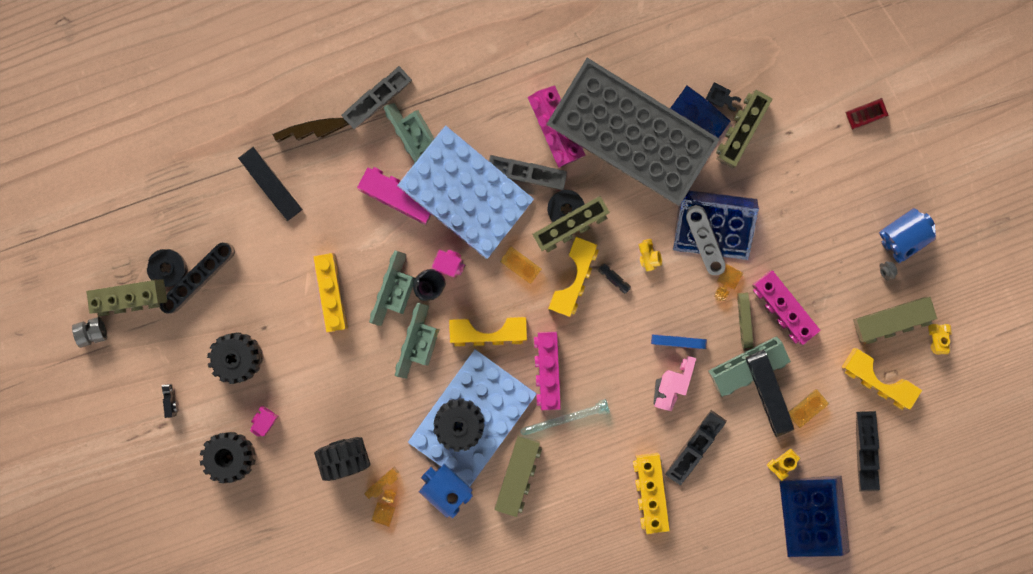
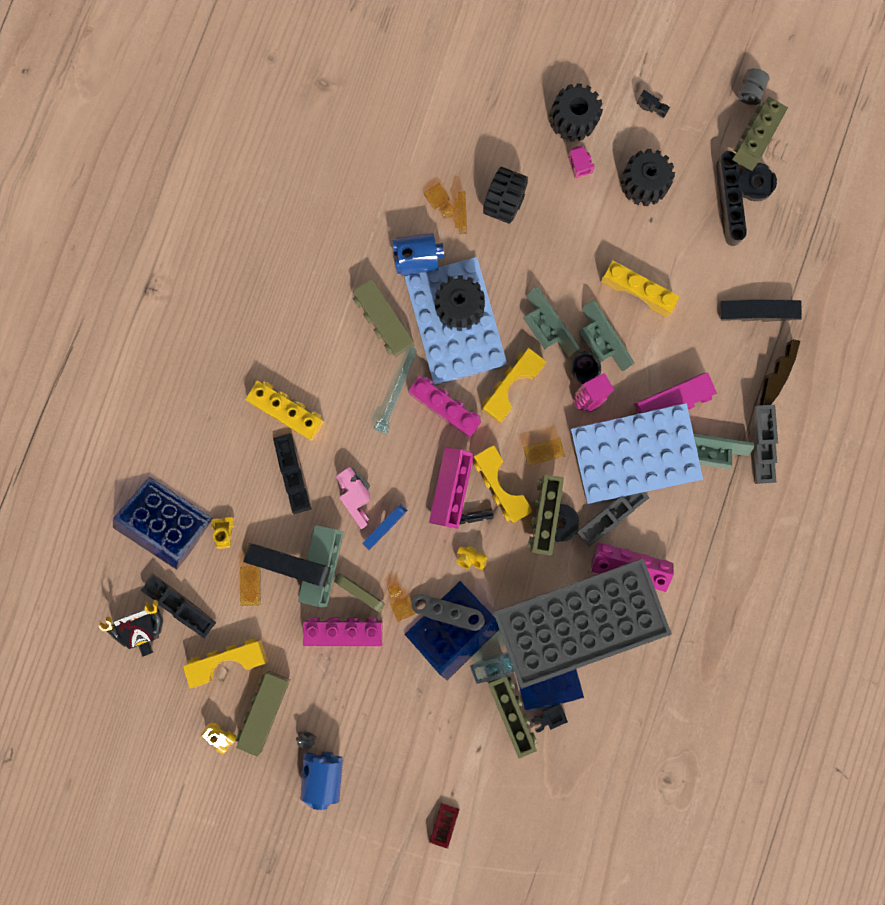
camera: 130 degrees right, 5 degrees down
(608, 314) = (451, 488): none -> dark pink brick
(721, 172) = (492, 668): none -> clear light blue brick
(910, 468) = (137, 628): none -> torso

